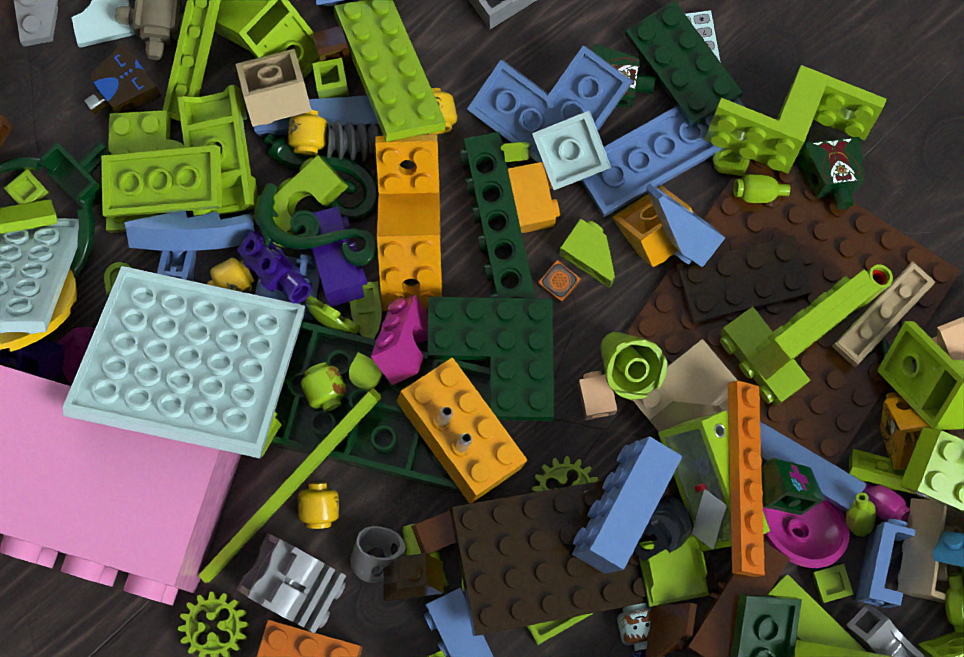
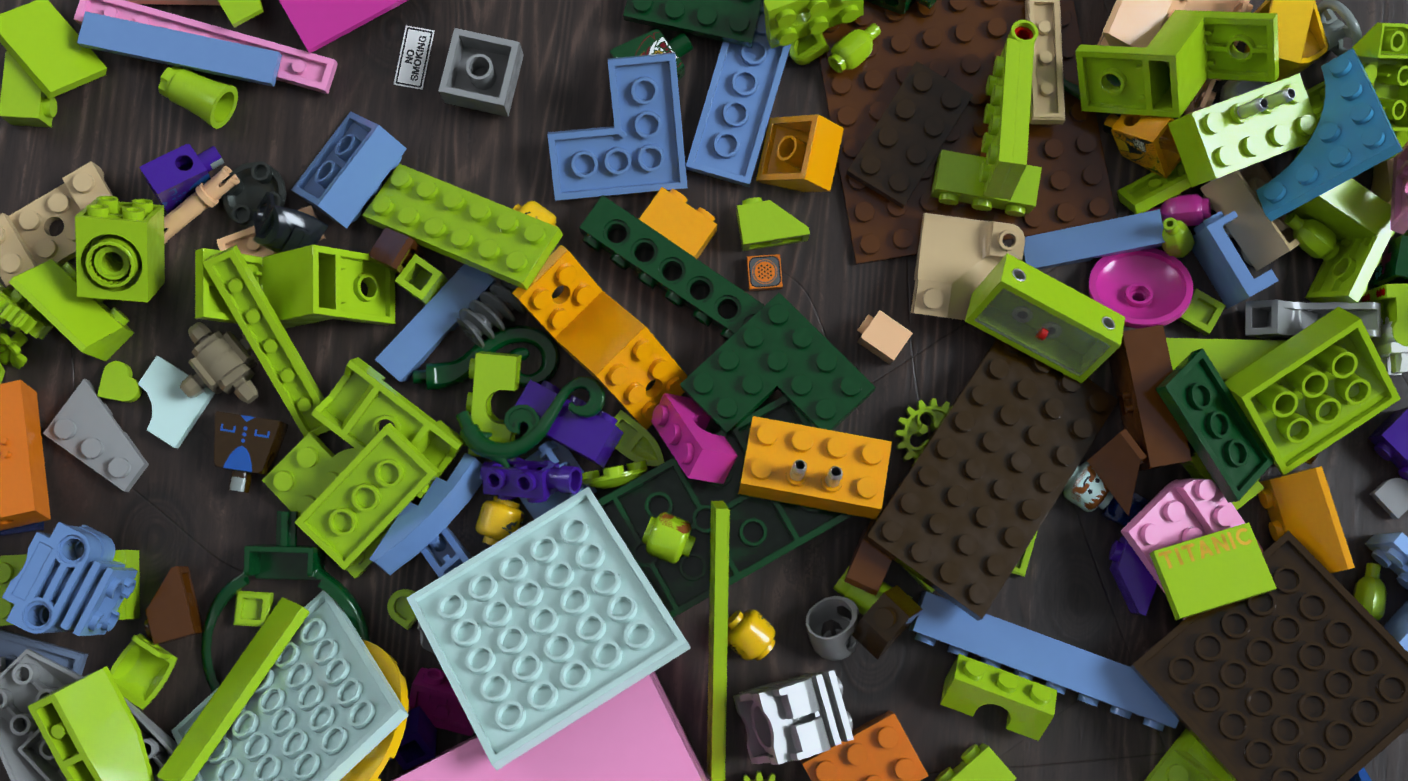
camera: 45 degrees left, 5 degrees up
(273, 87) = (384, 331): tan brick -> none
(307, 133) = (446, 341): yellow head -> none
(364, 372) = (689, 494): lime tile -> none
(516, 151) = (631, 198): lime piece -> none
(571, 150) = (677, 156): light aqua plate -> none
(626, 505) = (1001, 403): medium blue brick -> none
(632, 365) = (893, 285): lime cone -> none
(670, 525) = (1041, 385): black piece -> none
(674, 574) = (1075, 418): lime piece -> none
(689, 233) = (832, 136): medium blue slope -> none
(709, 519) = (1071, 352): white sticker -> none
(745, 479) = (1073, 293): orange plate -> none
(789, 487) = (1104, 269): dark green brick -> none

